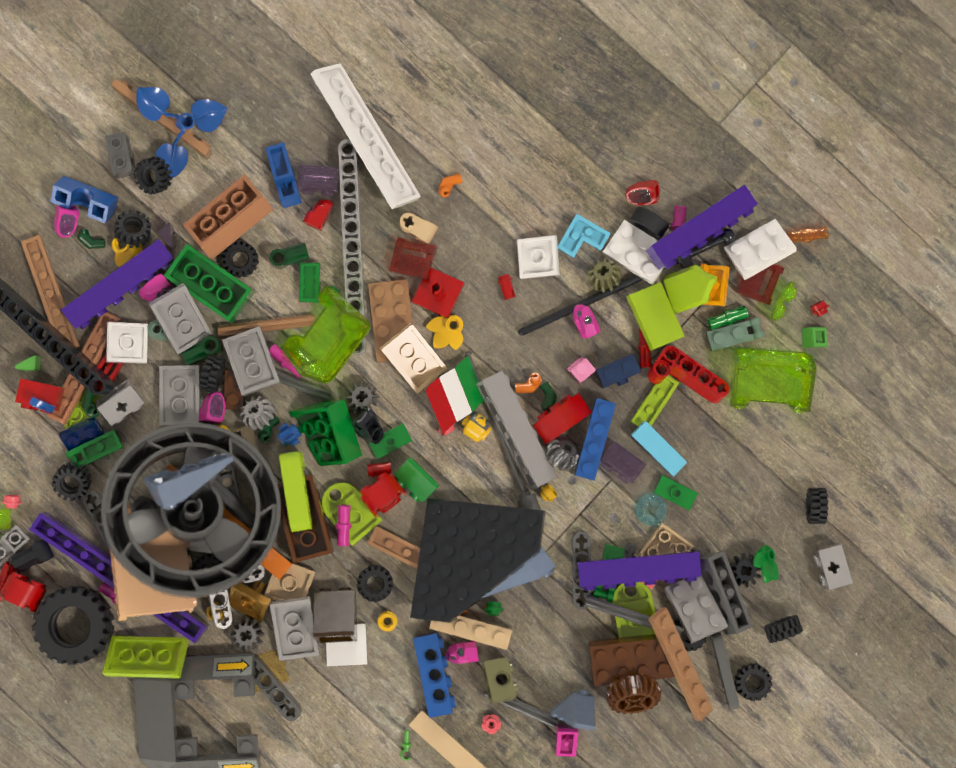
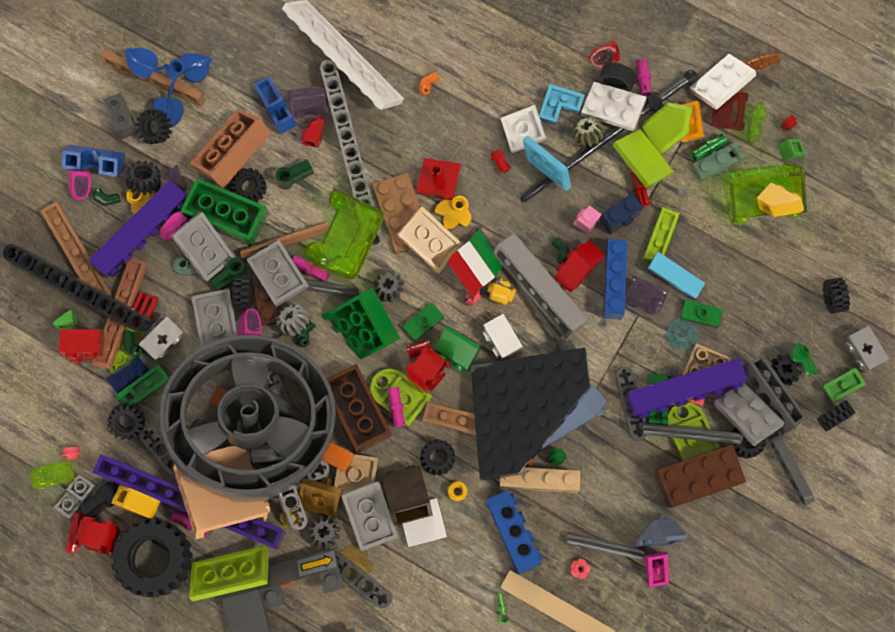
camera: 15 degrees left, 10 degrees down
(38, 403) = (85, 347): blue tile -> none
(66, 567) = (135, 502): none -> yellow slope
(126, 342) = (156, 282): white tile -> none
(174, 487) = (226, 394): sand blue wedge -> none
(289, 435) = (326, 334): blue gear -> none
(295, 490) = (344, 380): lime beam -> none
(309, 282) = (318, 194): green plate -> none
(368, 426) = (400, 309): black piece -> none
(410, 264) = (409, 158): clear red plate -> none
(421, 229) = (409, 125): tan piece -> none
(462, 652) = (537, 505): dark pink rock -> none
(465, 475) = (501, 337): none -> white brick
(496, 692) = (578, 534): olive brick -> none
(531, 384) = (543, 243): orange arm -> none
(548, 493) = (582, 338): yellow plate -> none
(552, 304) = (547, 163): none -> medium azure tile
(562, 453) = (588, 297): flat silver gear -> none
(585, 321) = (580, 175): dark pink rock -> none
(633, 694) = (711, 507): reddish brown gear -> none
(680, 664) = (749, 468): medium nougat plate -> none
(689, 377) = (688, 202): red beam -> none
(701, 227) = (665, 71): dark purple brick -> none
(740, 682) = (831, 468): black tyre -> none
(783, 395) = (779, 202): none -> yellow slope
(800, 598) = (843, 385): none -> bright green plate

